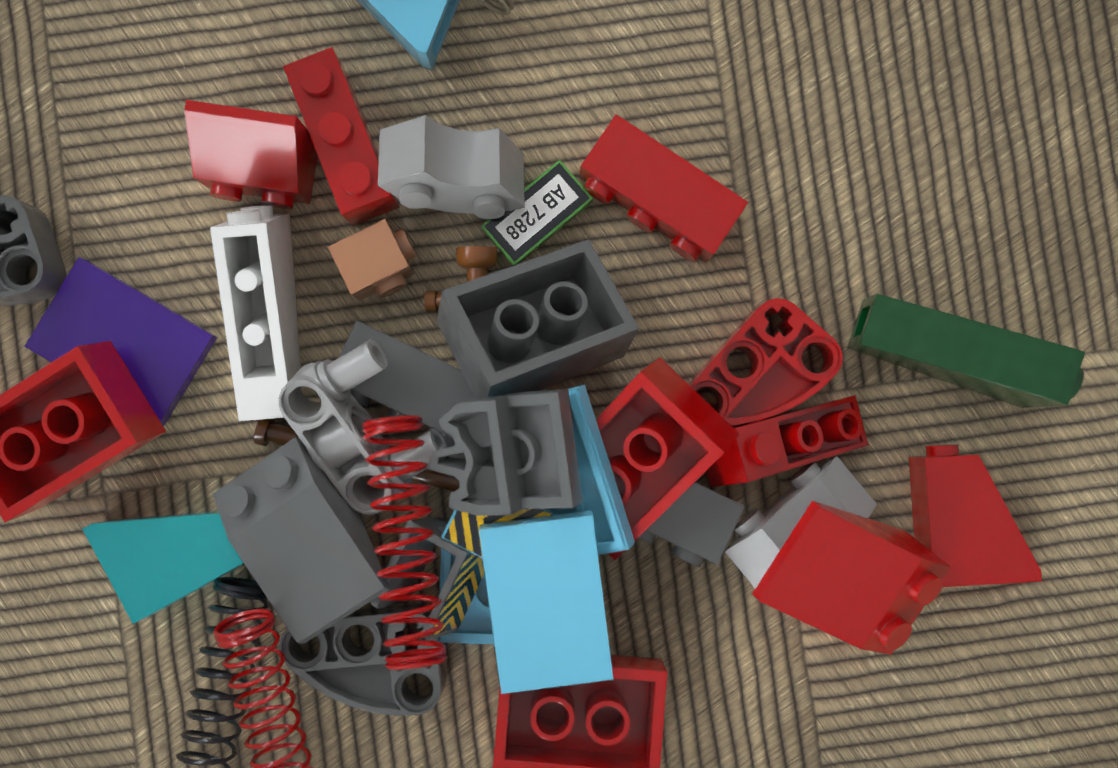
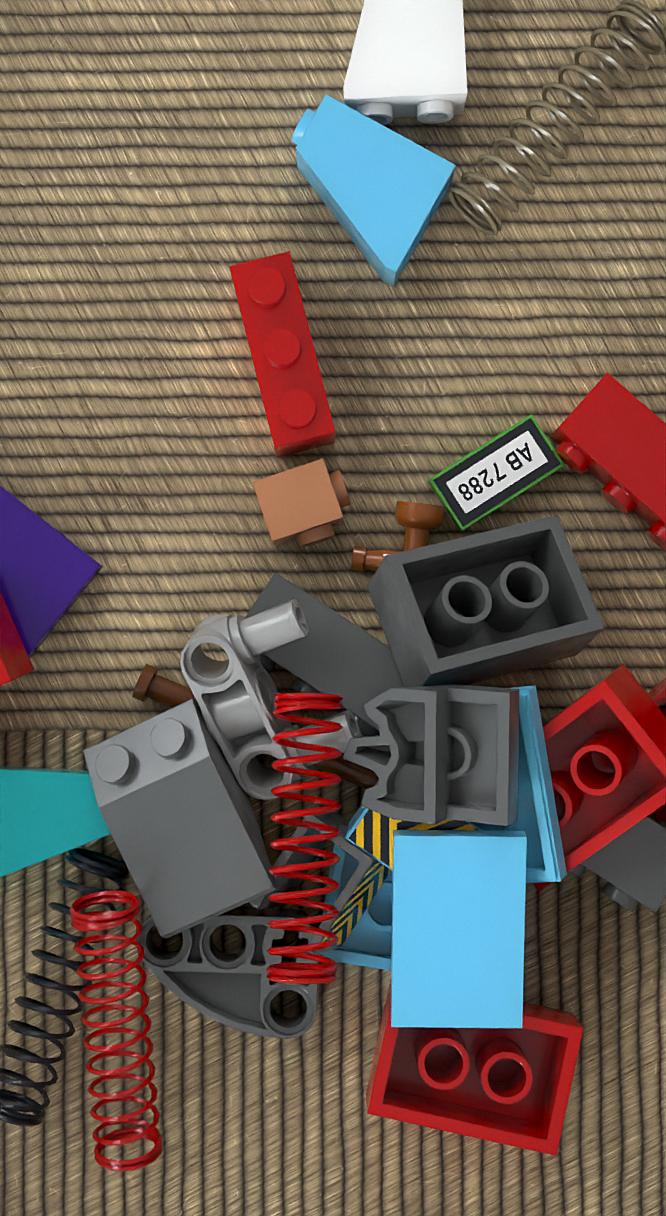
camera: 10 degrees right, 0 degrees up
(250, 154) = (177, 362): slope -> none
(258, 306) = (162, 545): white slope -> none
(451, 168) = (407, 410): light grey brick -> none

